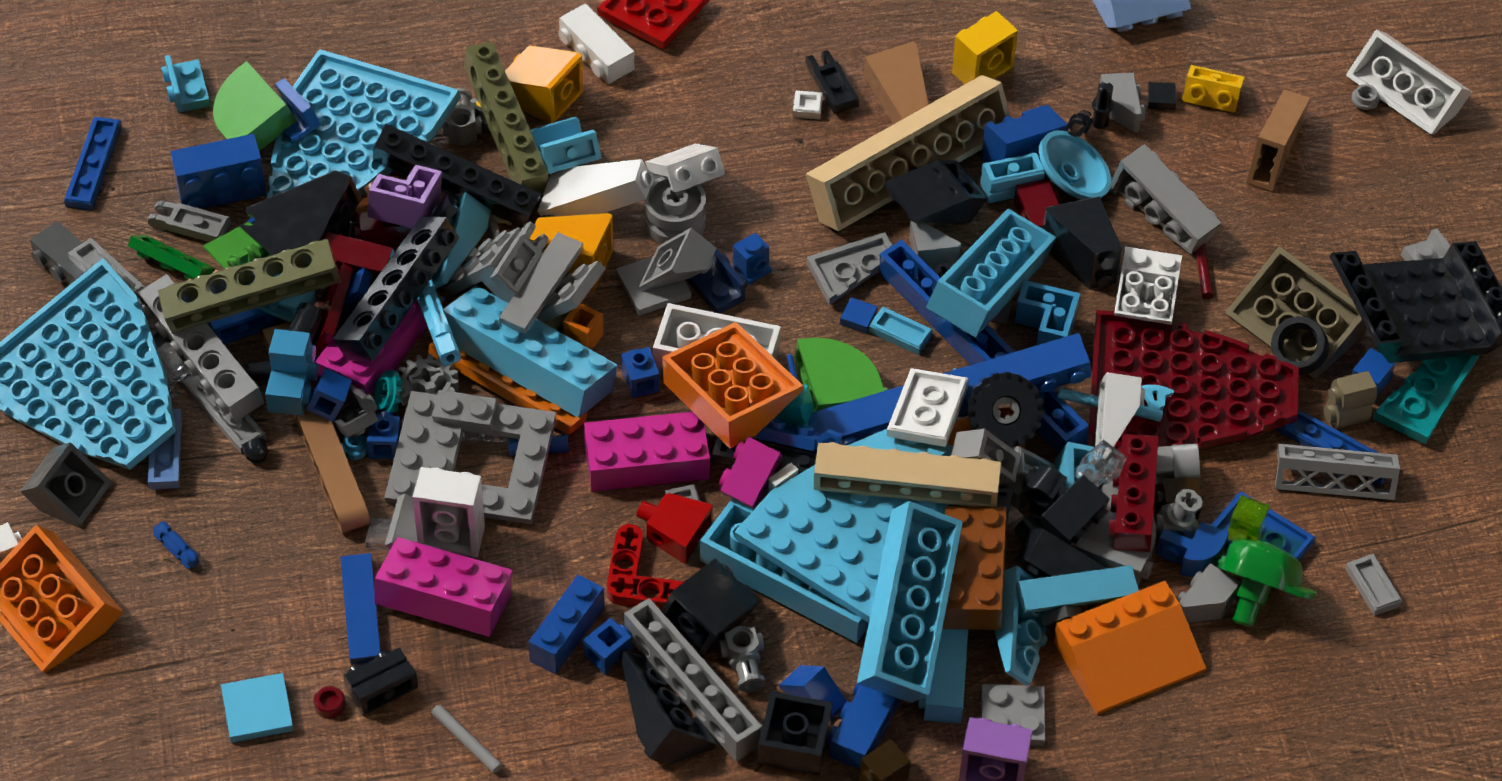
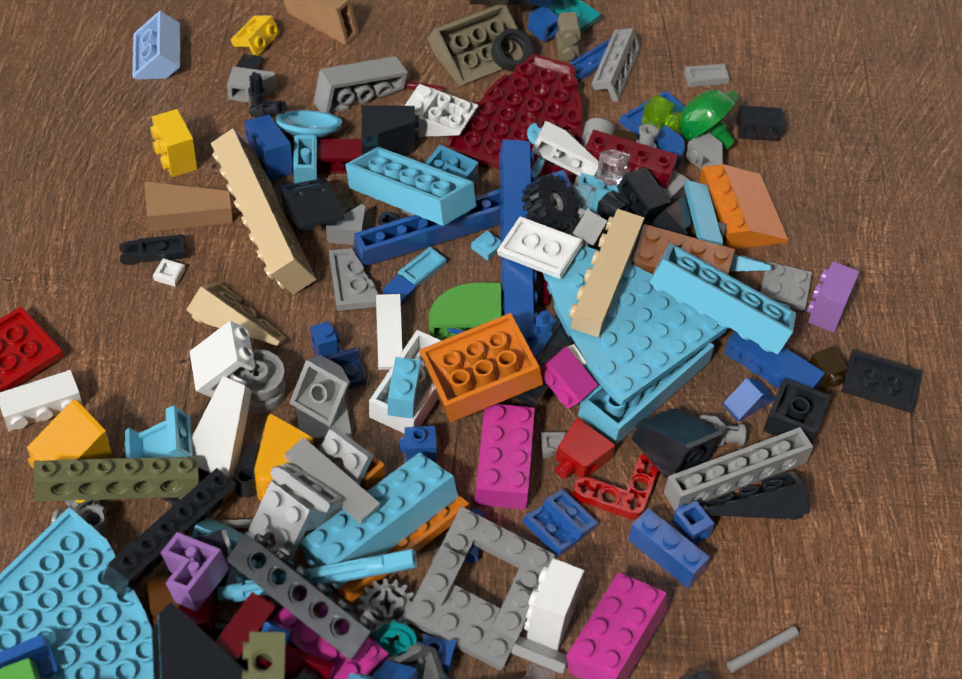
camera: 80 degrees left, 0 degrees up
(579, 522) = (560, 522): none -> blue slope
(682, 320) = (403, 387): none -> medium azure brick
(763, 166) = (218, 305): none -> tan wedge
(794, 309) = (388, 329): none -> white slope
(1058, 452) = (584, 195): none -> clear tile
(1295, 652) = (760, 123): none -> black brick

